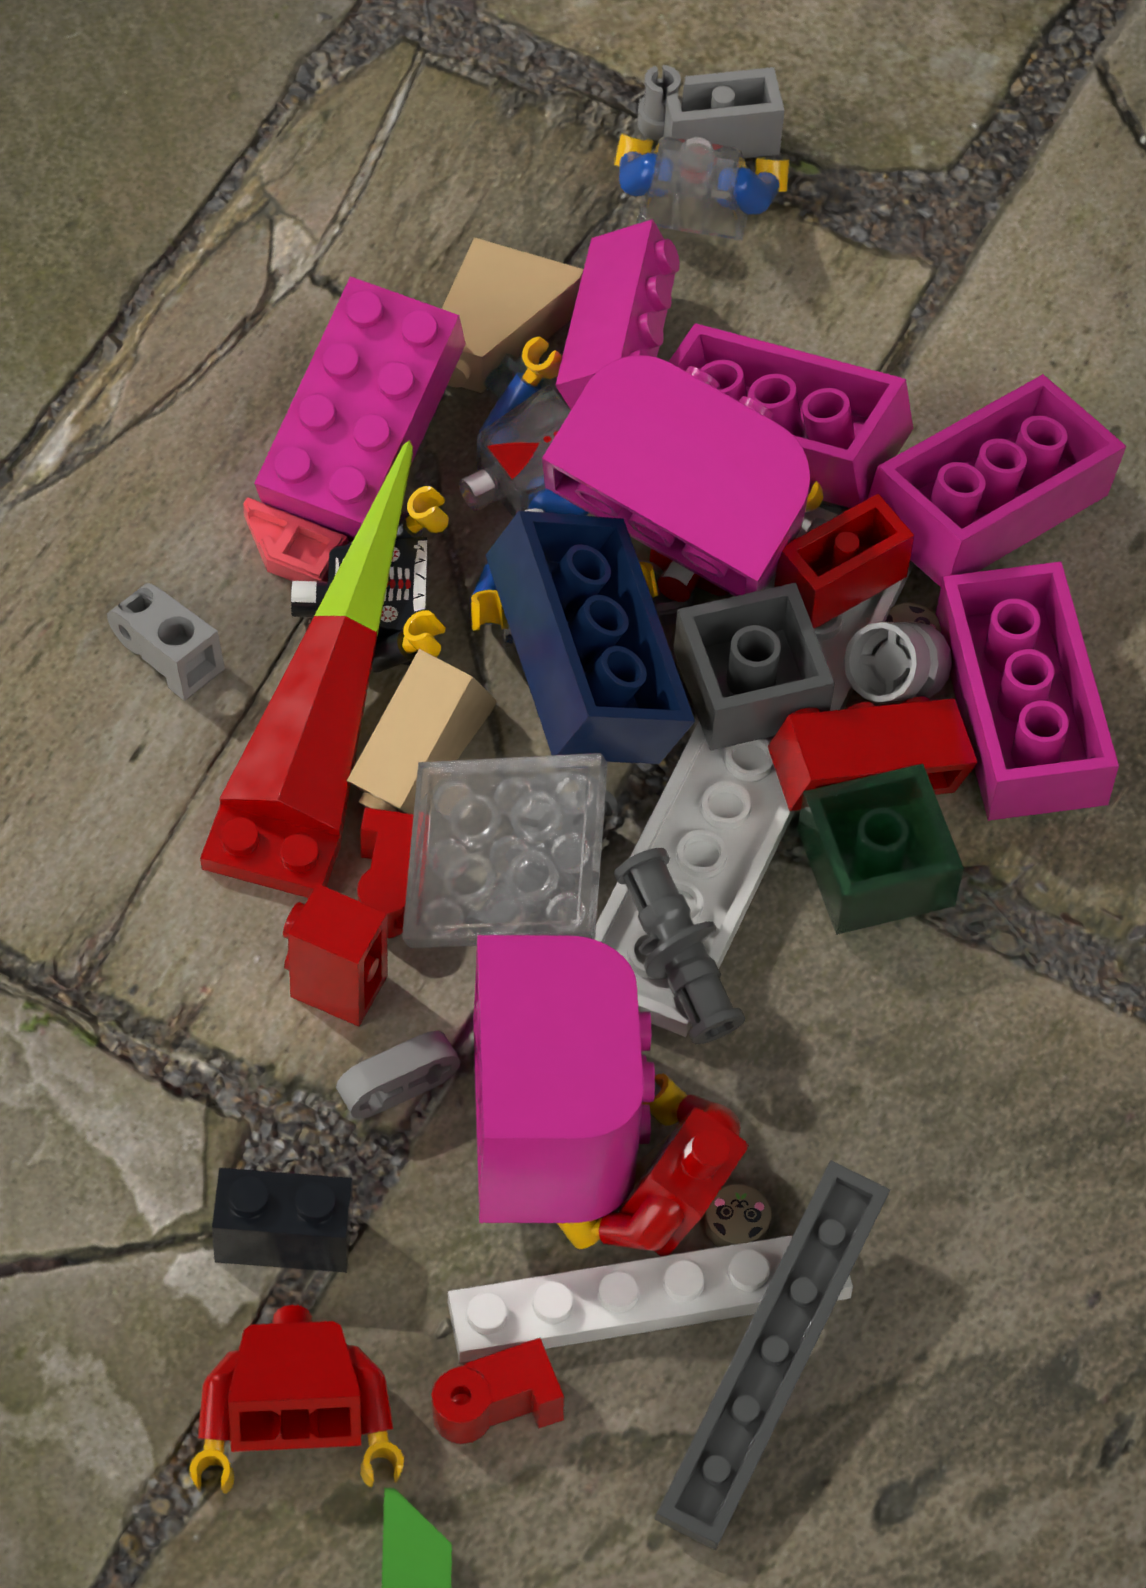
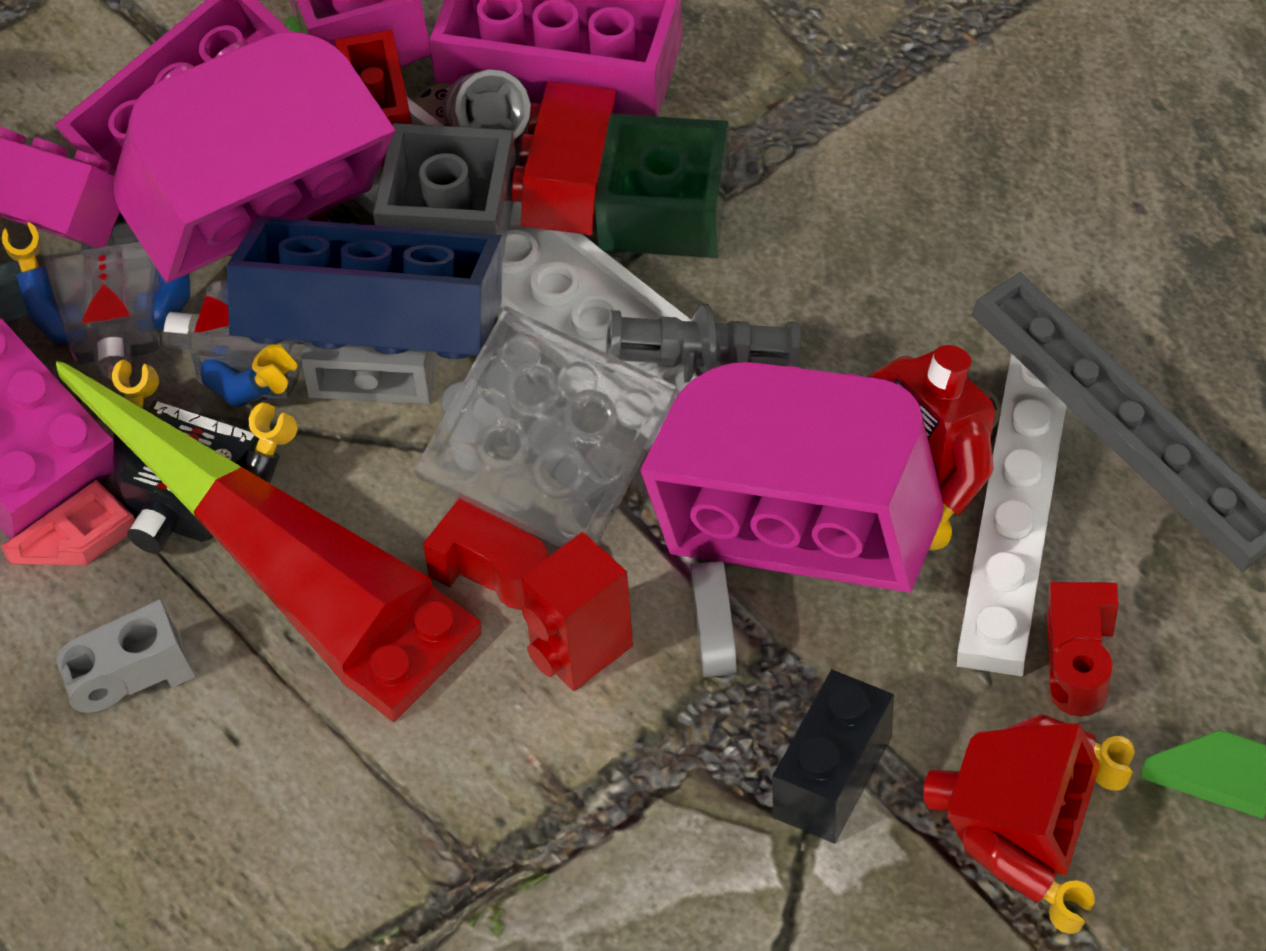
camera: 60 degrees left, 5 degrees down
(426, 721) = (363, 477): tan slope -> none

